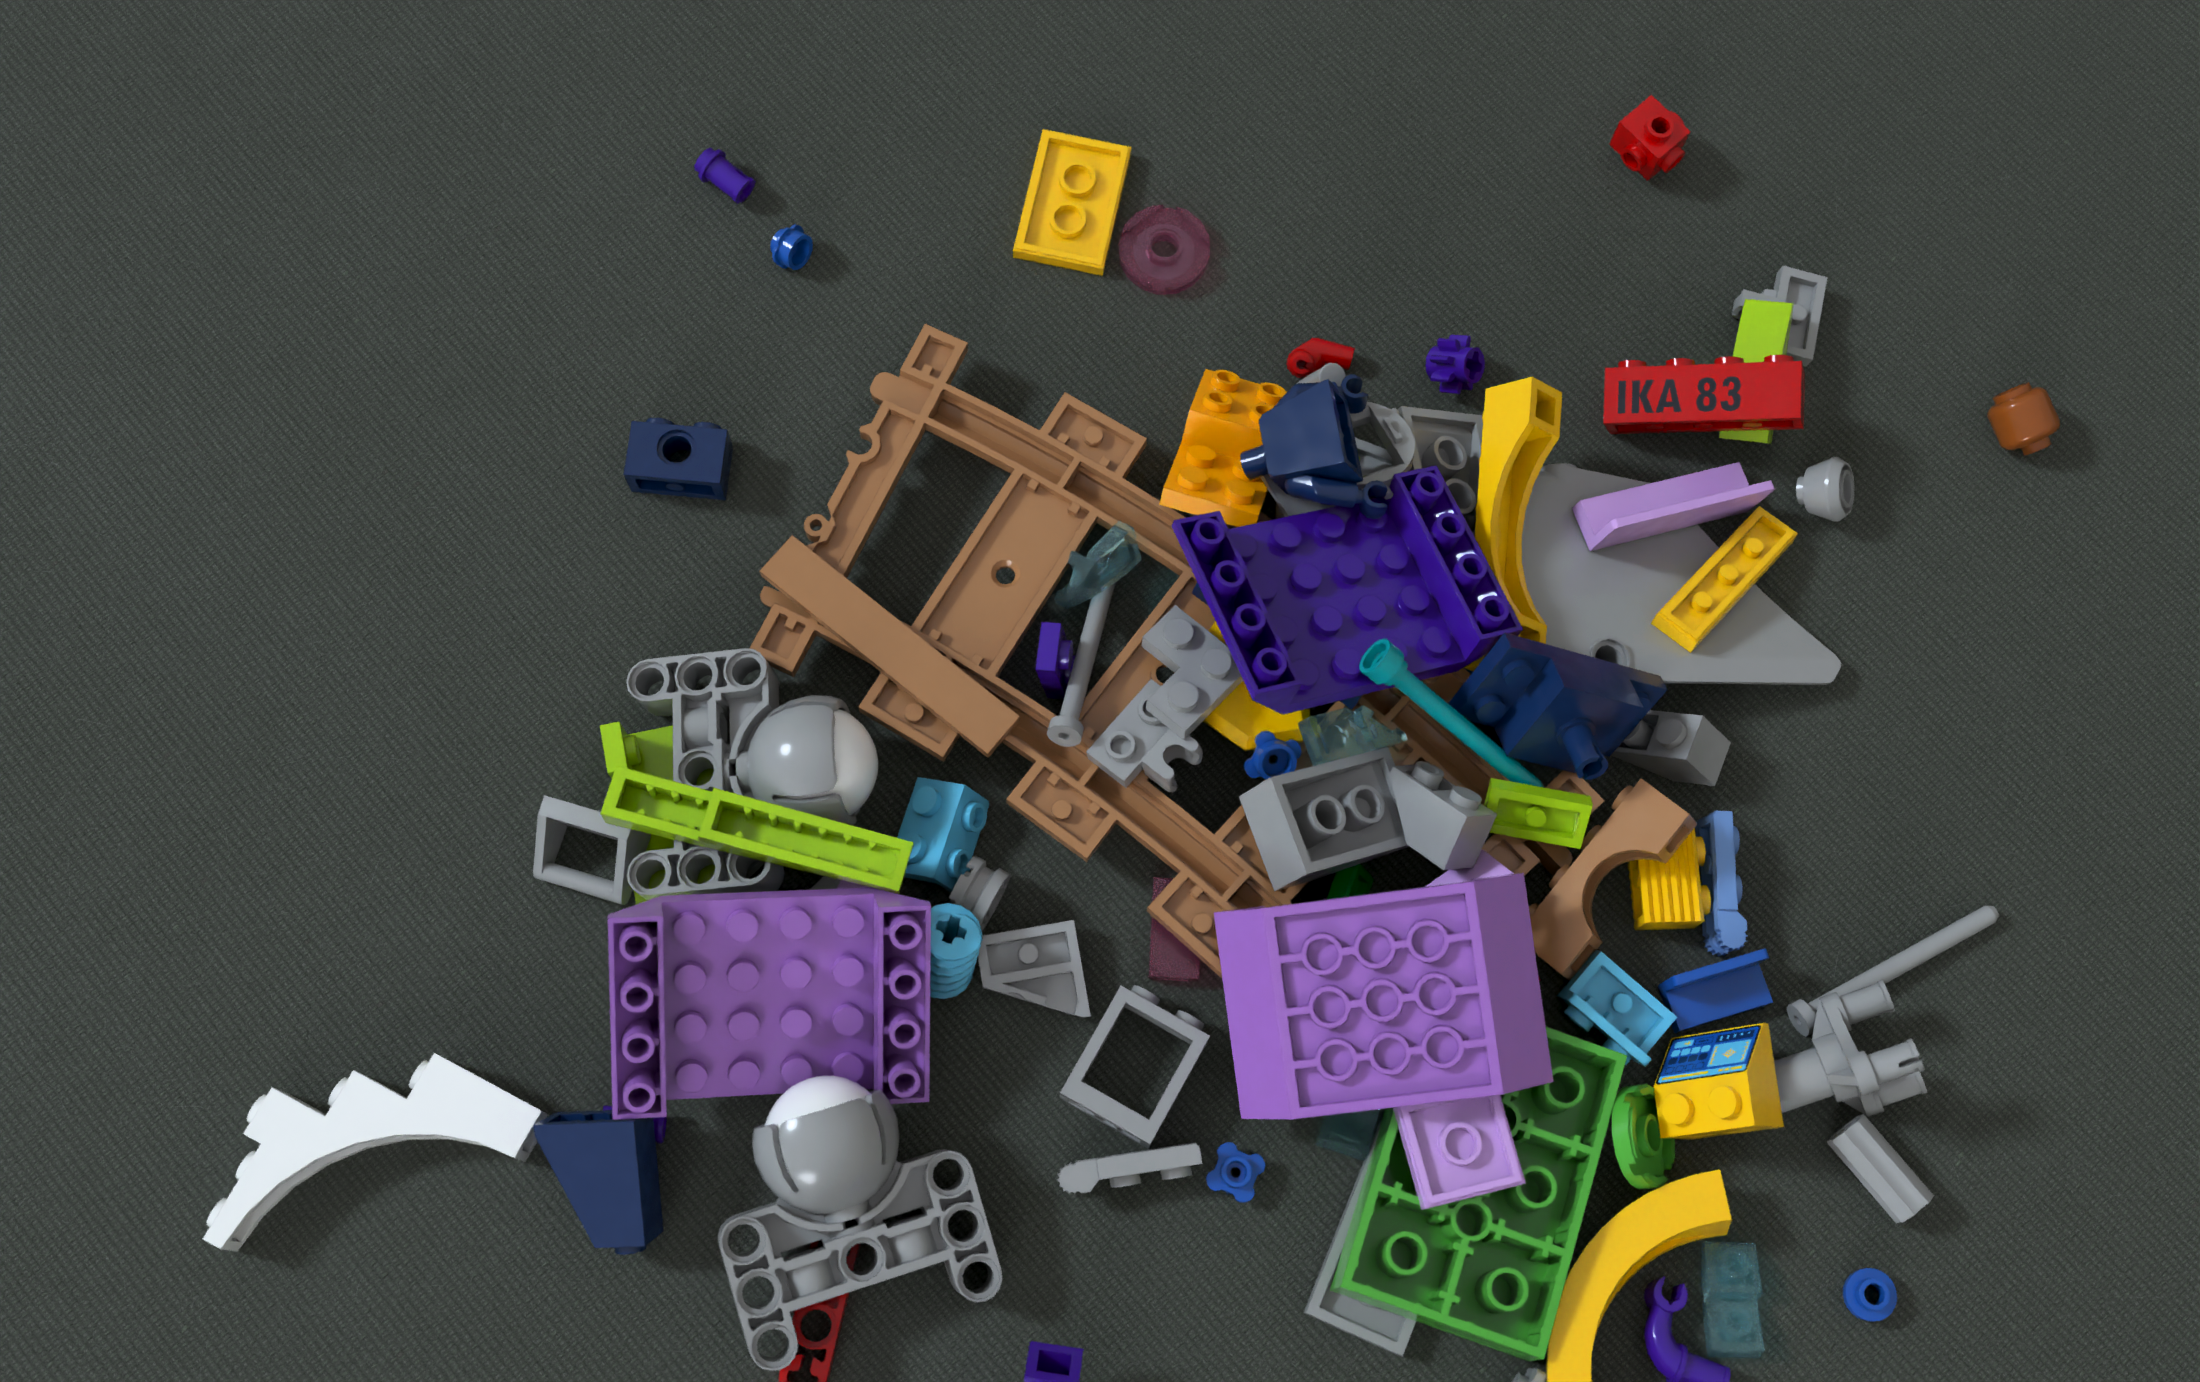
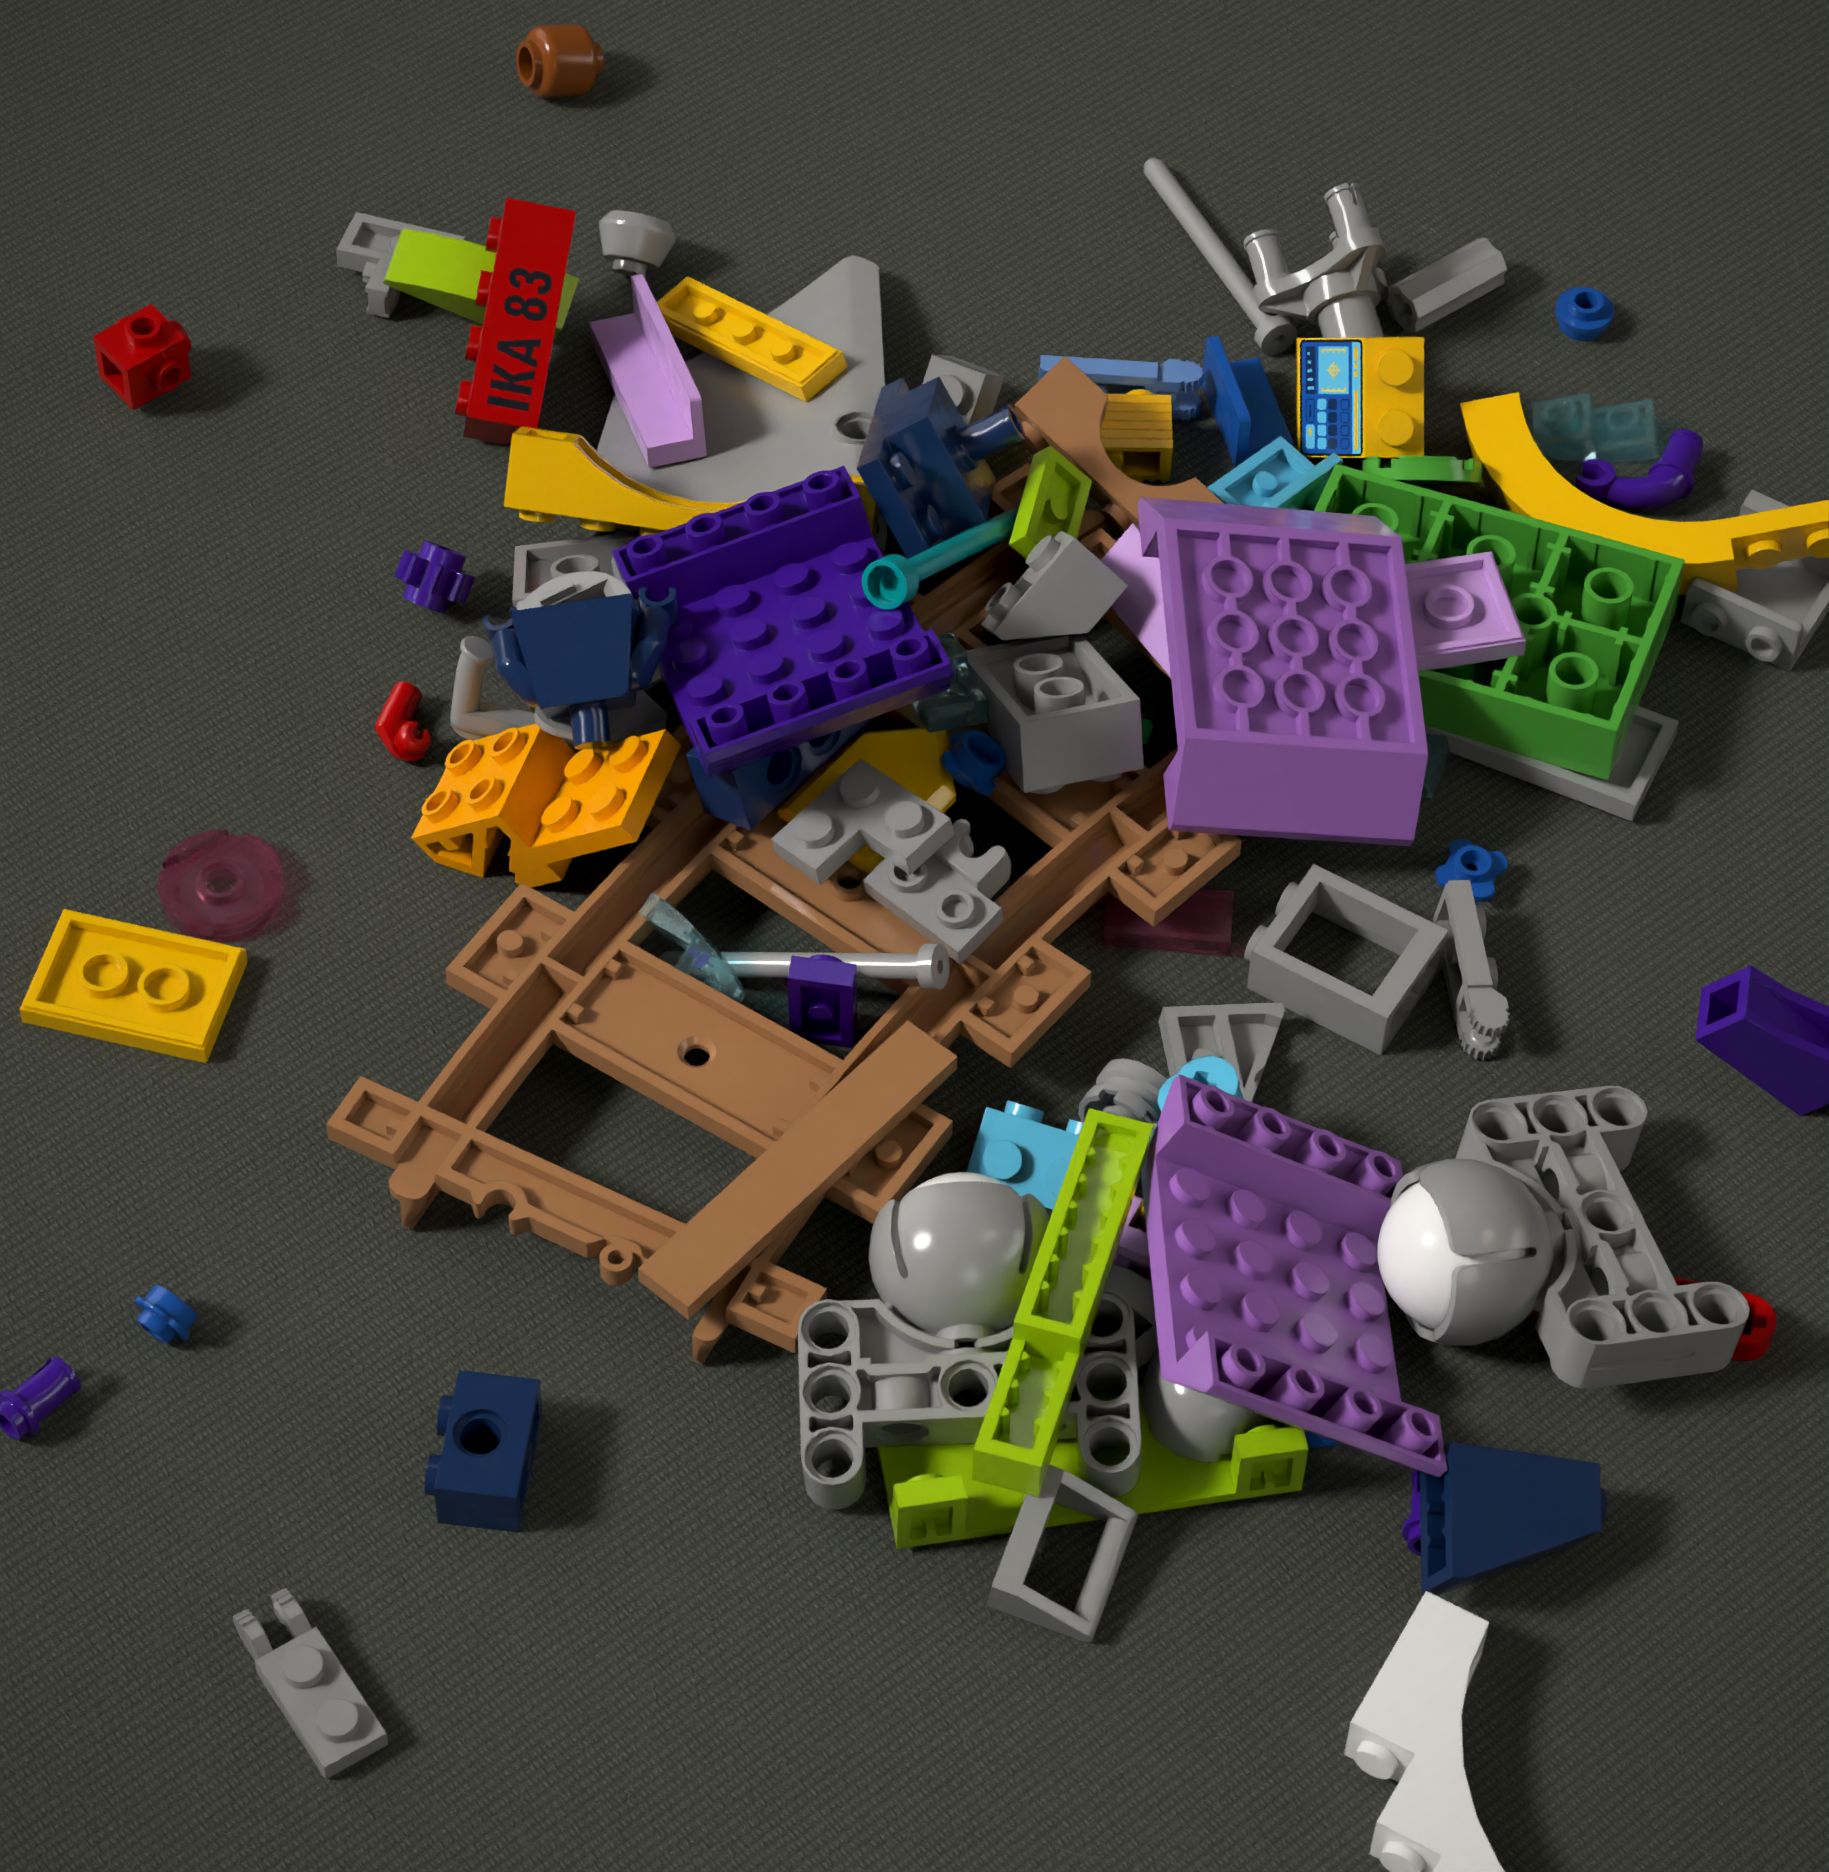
camera: 85 degrees left, 20 degrees down
(508, 366) = (312, 1689): none -> light grey hinge

